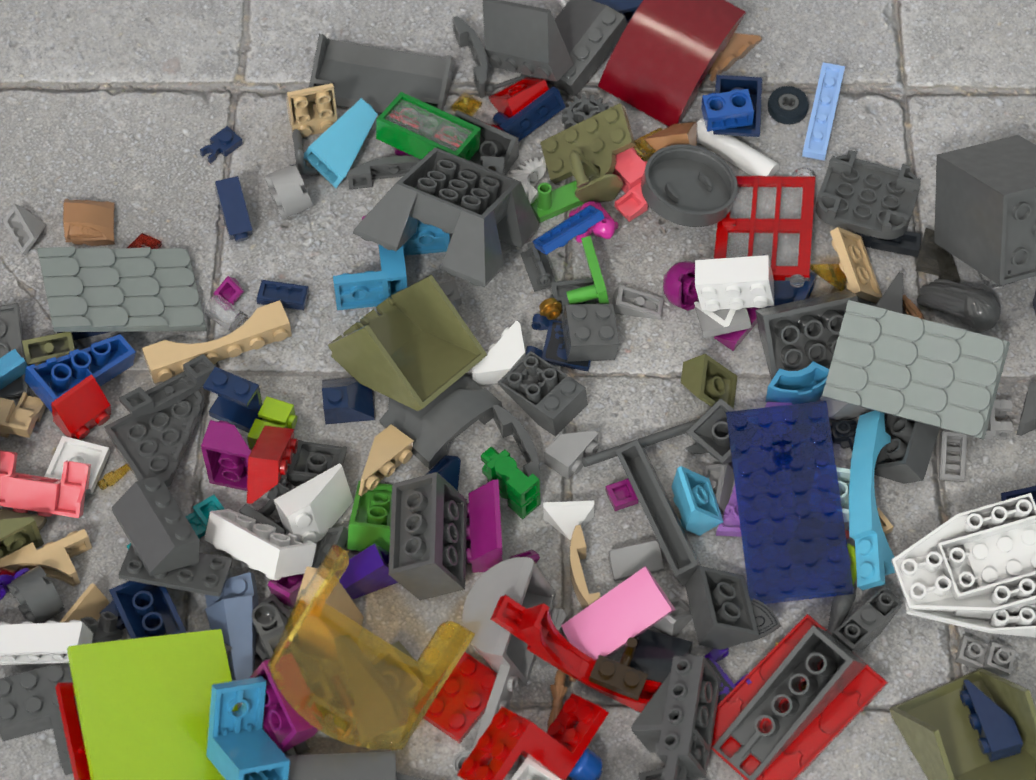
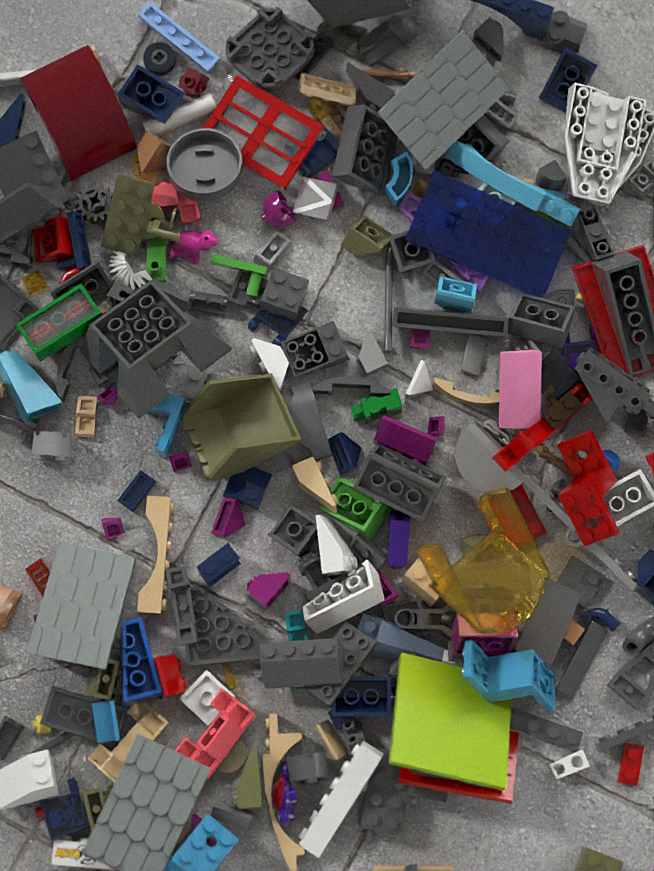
camera: 70 degrees left, 20 degrees up
(233, 208) = (44, 493): dark blue slope -> none
(269, 460) = (289, 559): red slope -> none
(275, 414) = (254, 554): lime piece -> none
(300, 396) = (228, 518): none -> magenta slope
(339, 319) = (180, 461): none -> magenta slope
(344, 214) = (86, 416): none -> tan slope
(550, 308) = (250, 311): pearl gold plate -> none
(568, 229) = (198, 266): blue plate -> none
(721, 111) = (160, 104): blue brick -> none
(734, 283) = (308, 178): white brick -> none
(779, 142) = (193, 83): none -> dark red brick
(907, 533) = (551, 177): none -> dark grey brick
(976, 454) = (508, 98): none -> dark grey pin

